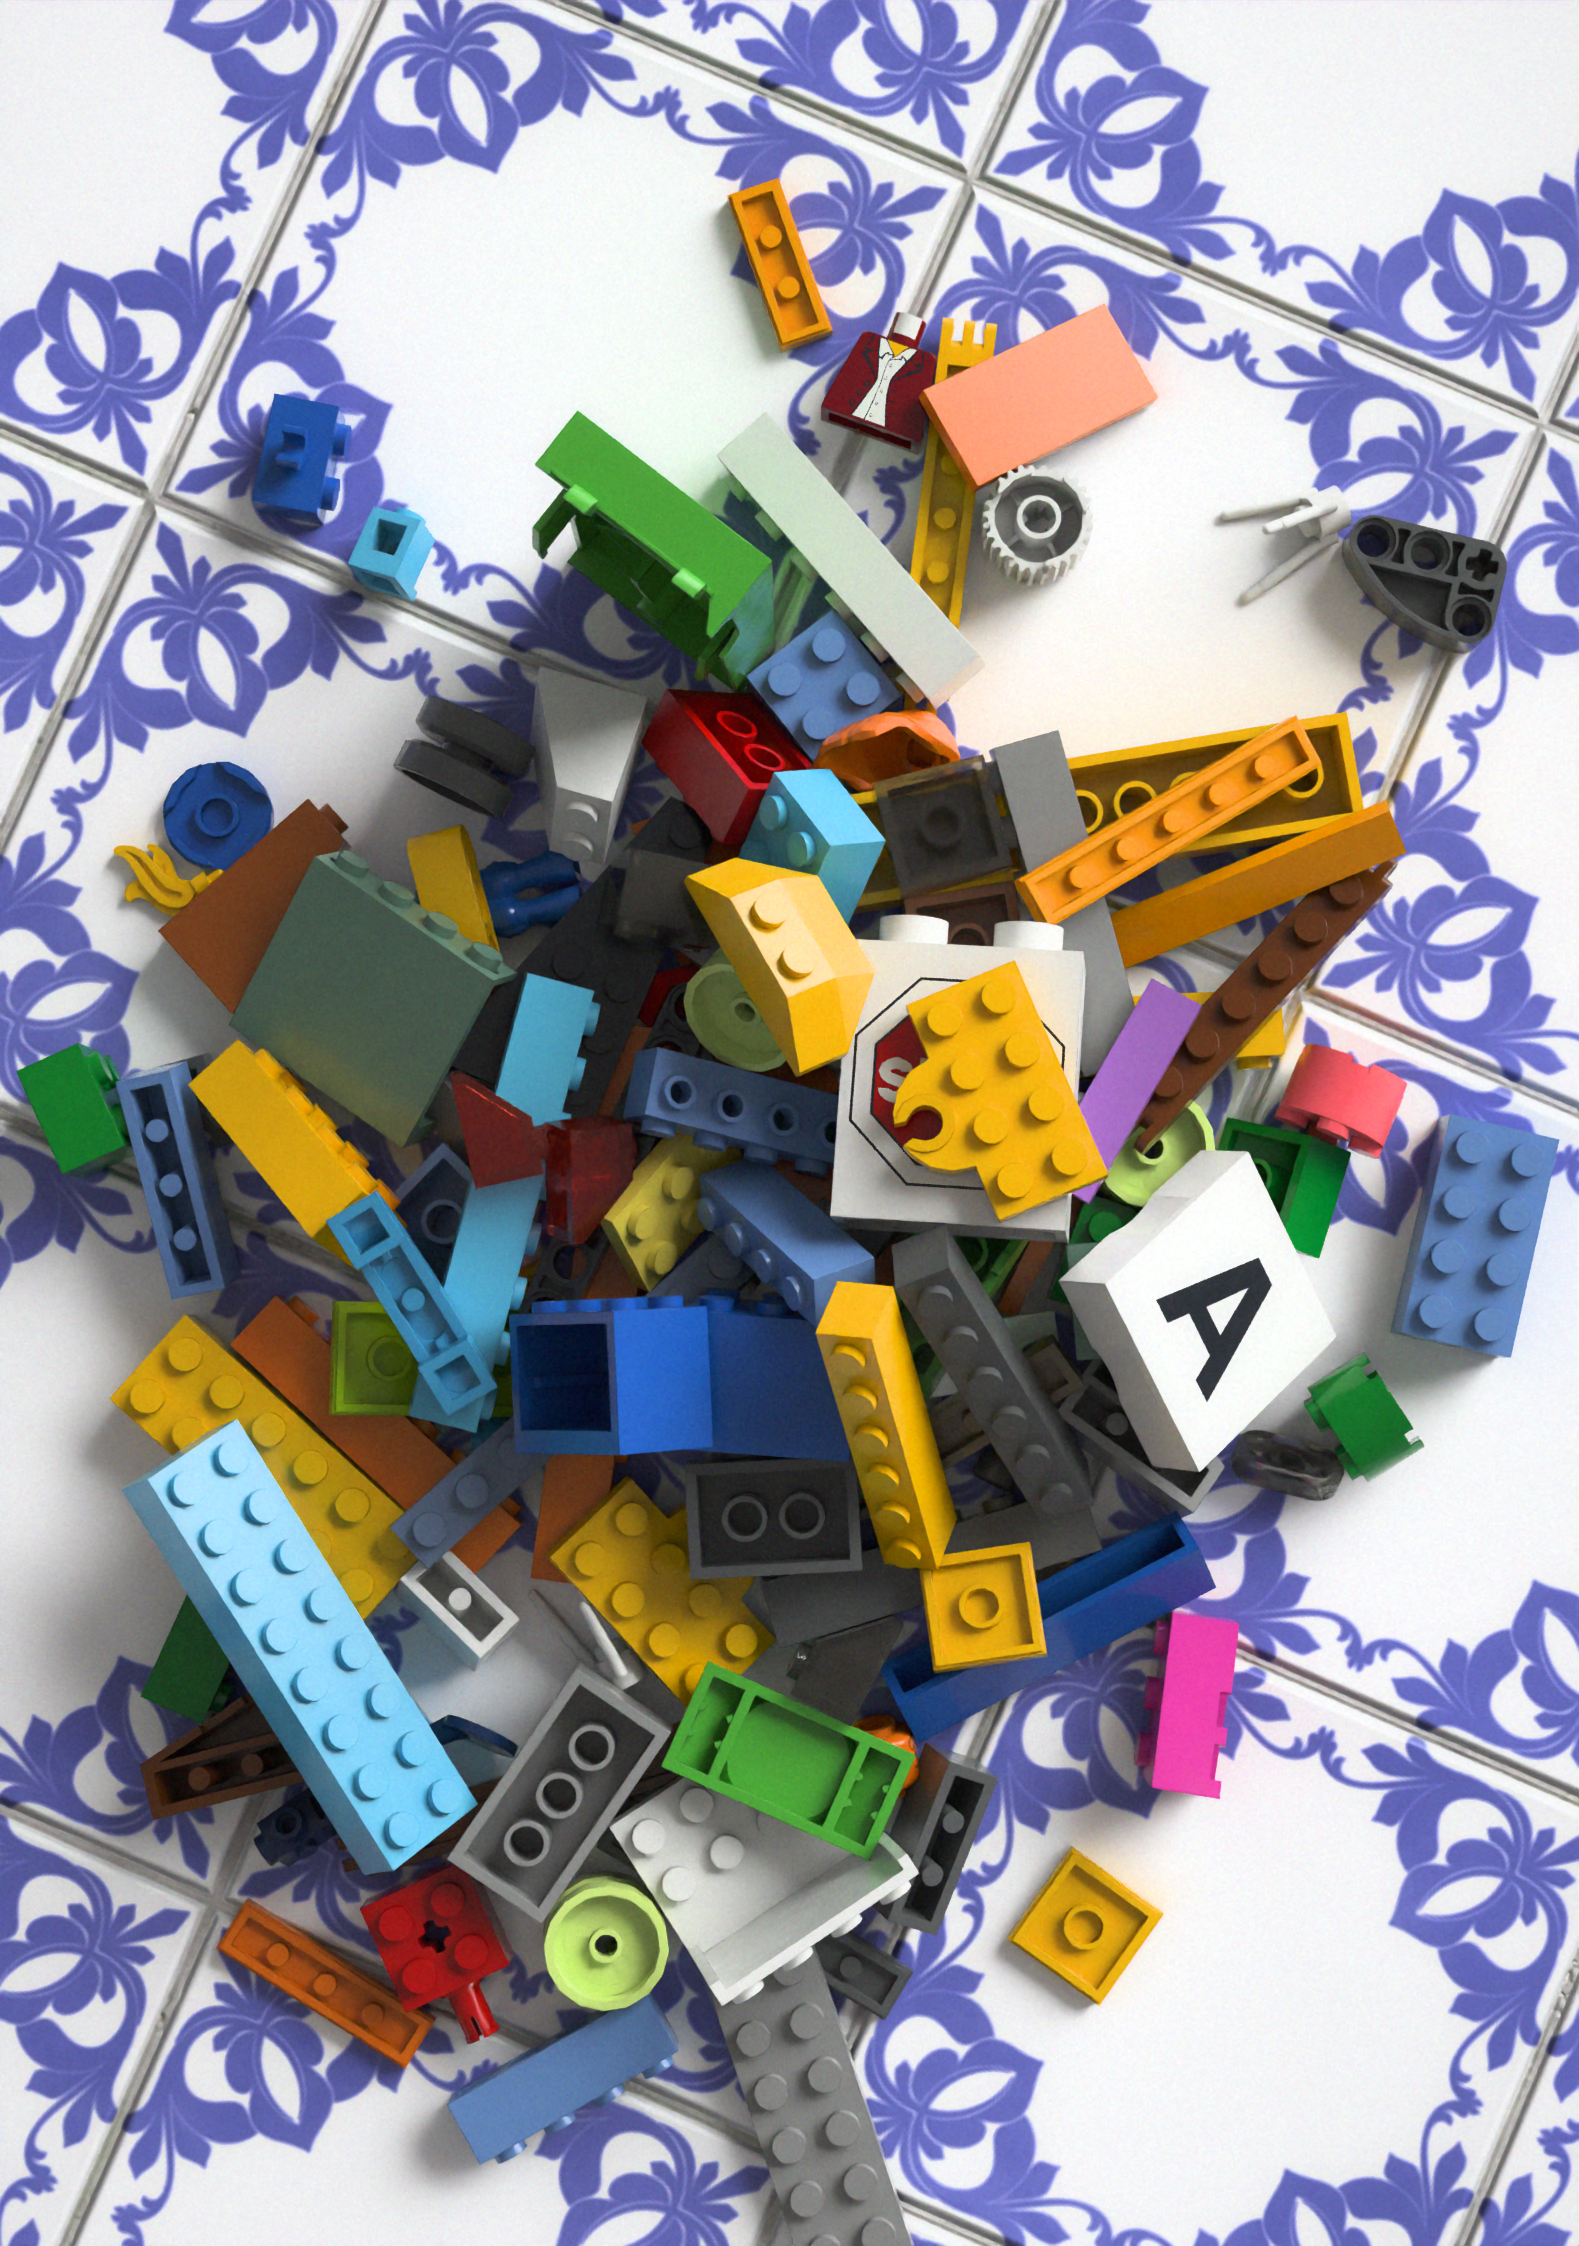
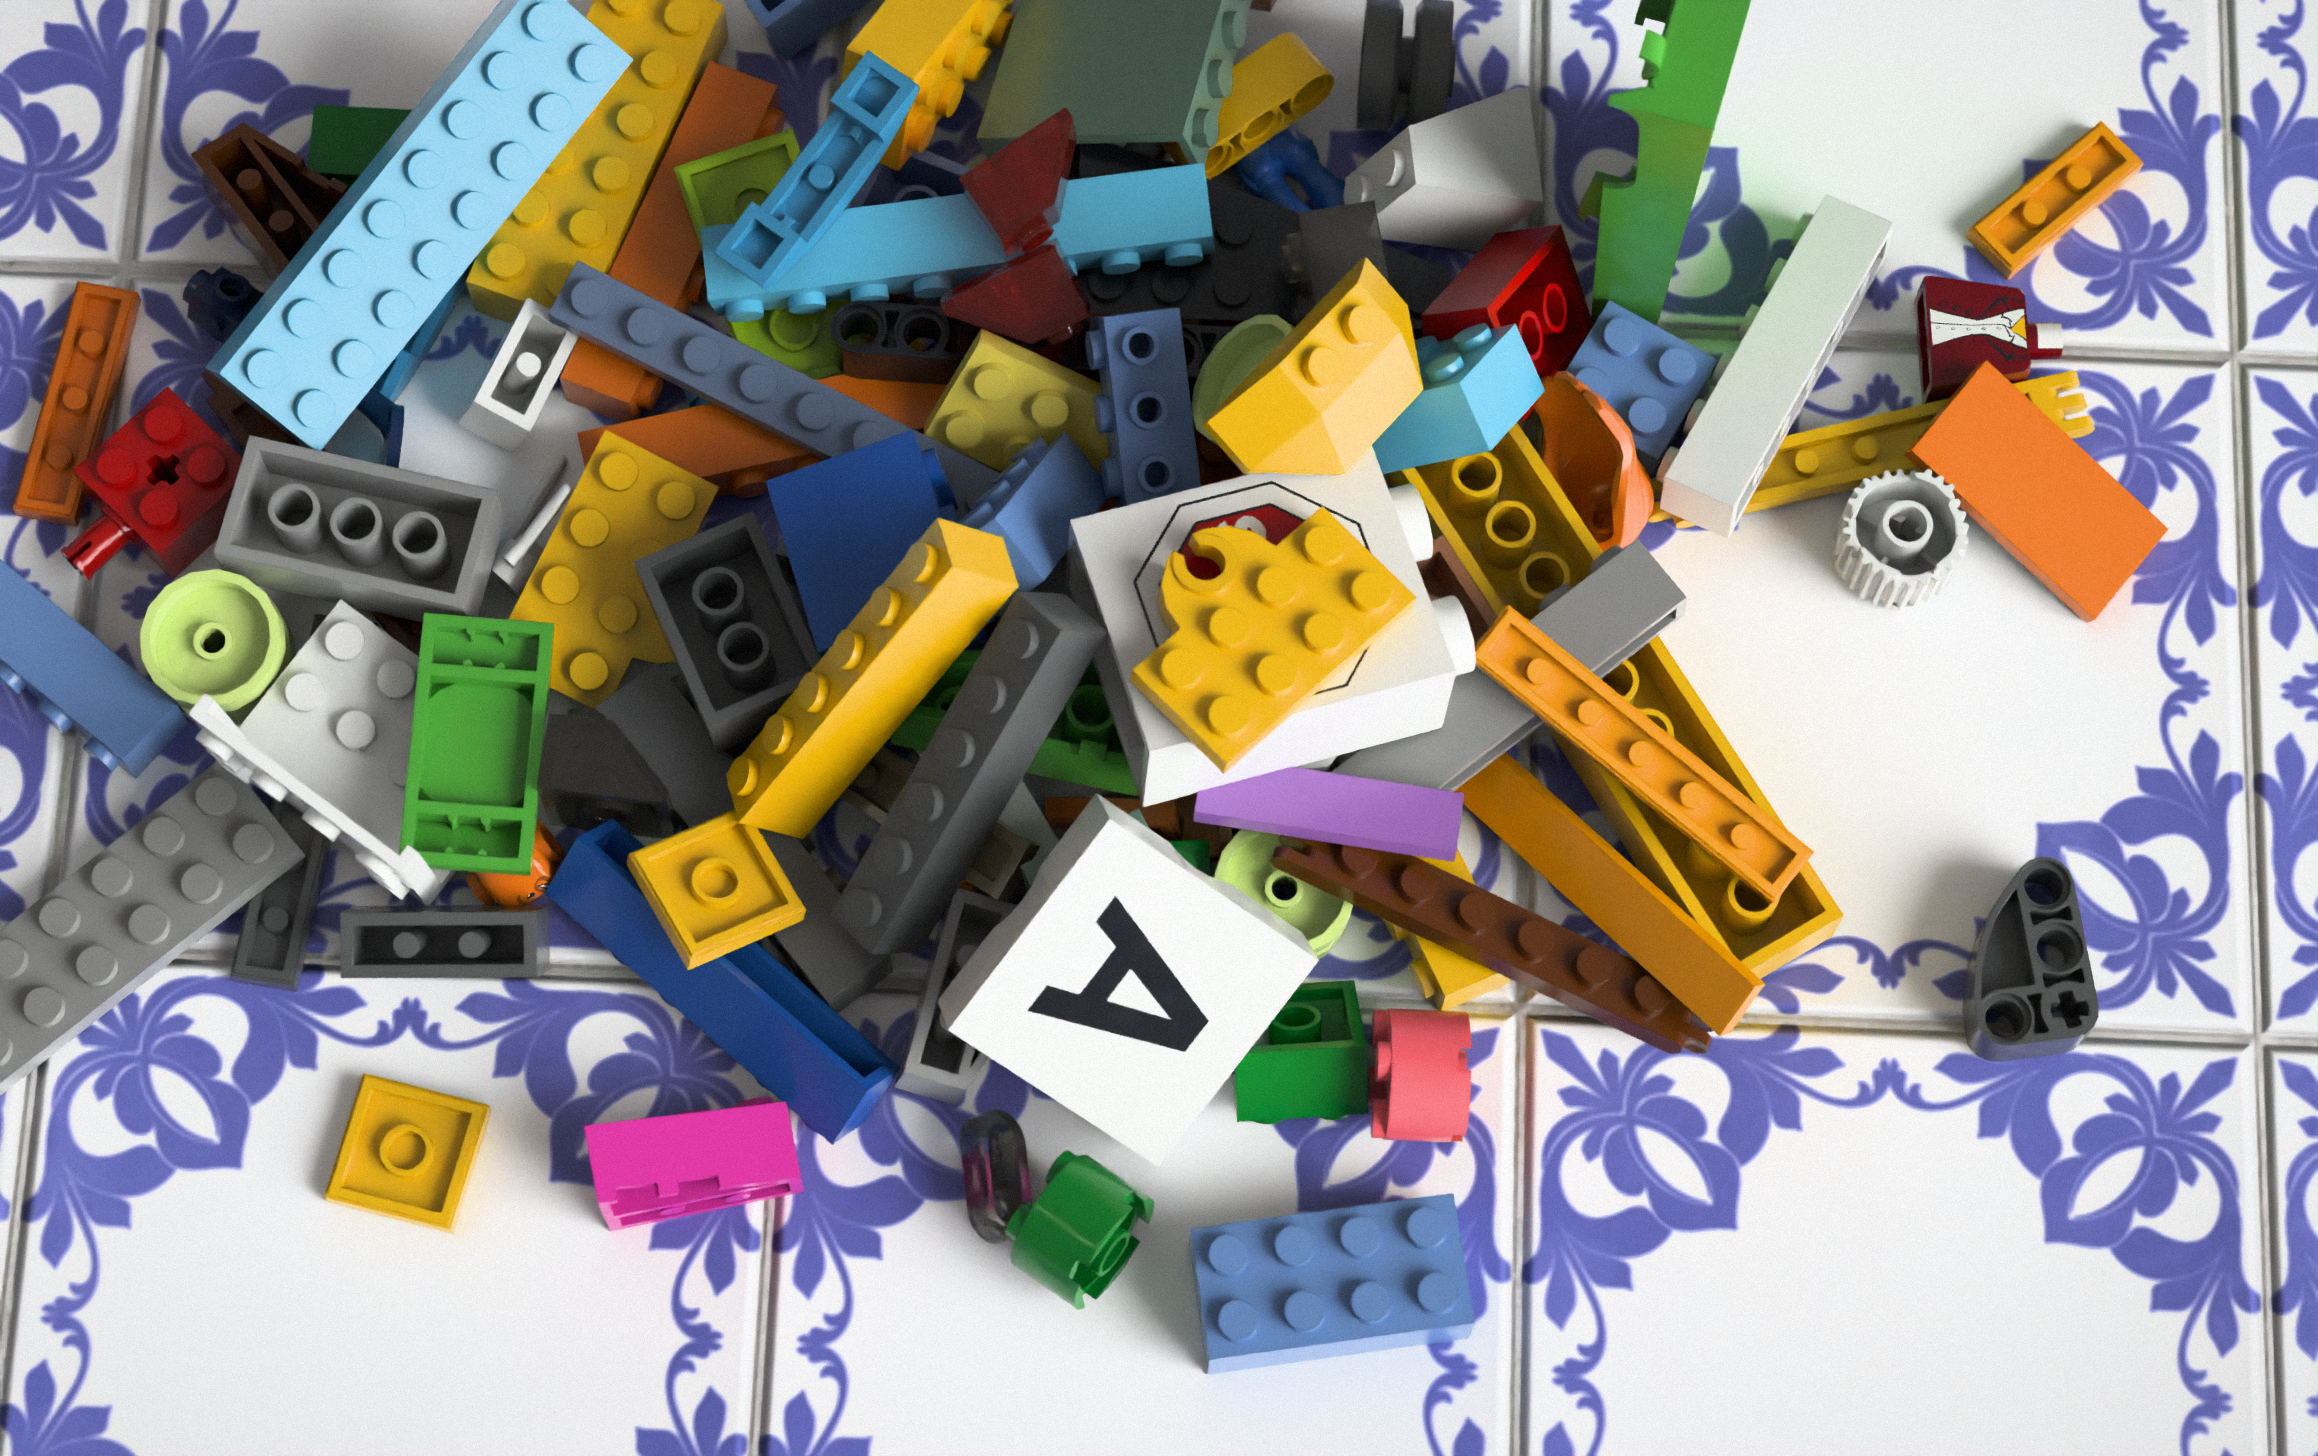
camera: 65 degrees right, 15 degrees down
(611, 1376) = (816, 383): blue container -> none
(941, 827) = (1530, 524): clear smoke brick -> none
(1315, 514) = (2048, 830): white plant -> none

